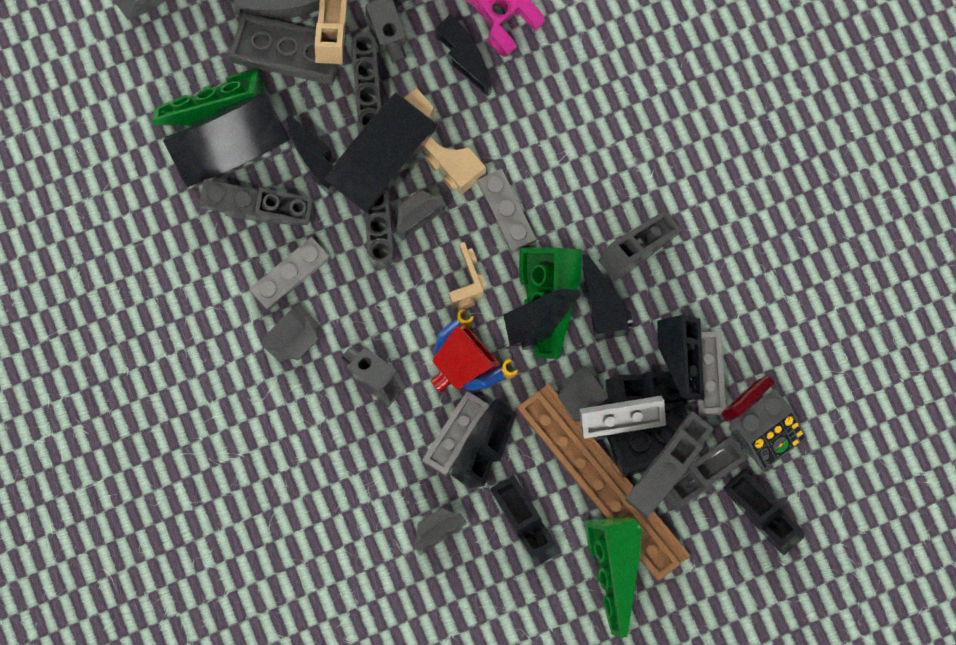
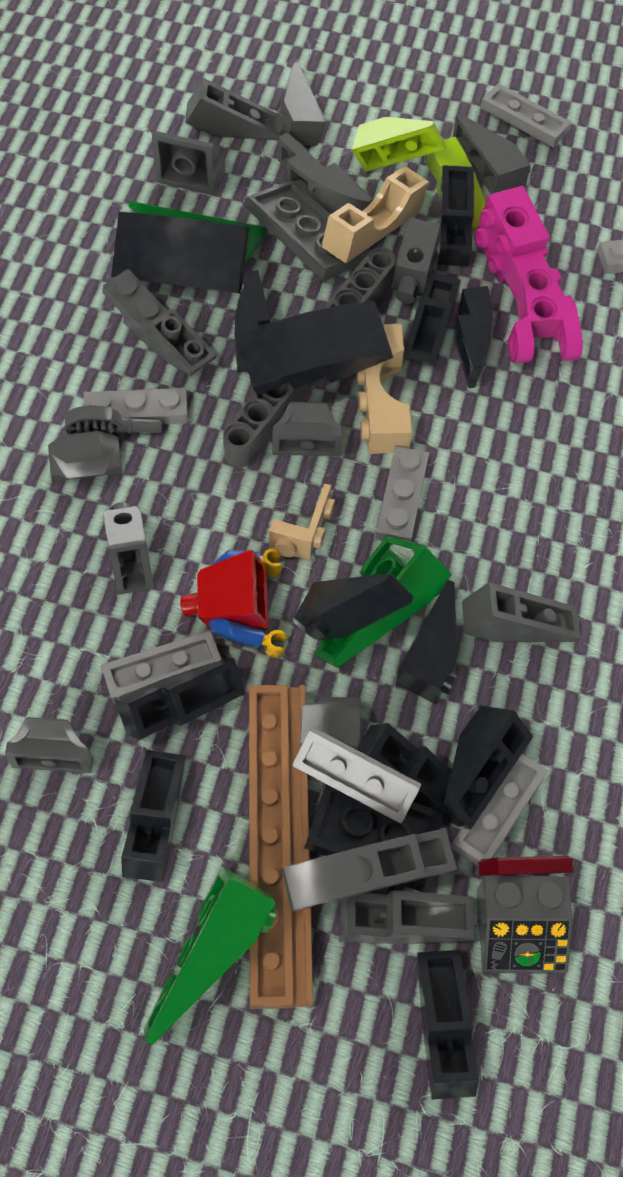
camera: 30 degrees right, 15 degrees down
(161, 53) = (187, 162): none -> dark grey slope
(286, 301) = (107, 420): none -> dark grey piece
(429, 64) = (432, 319): none -> black slope

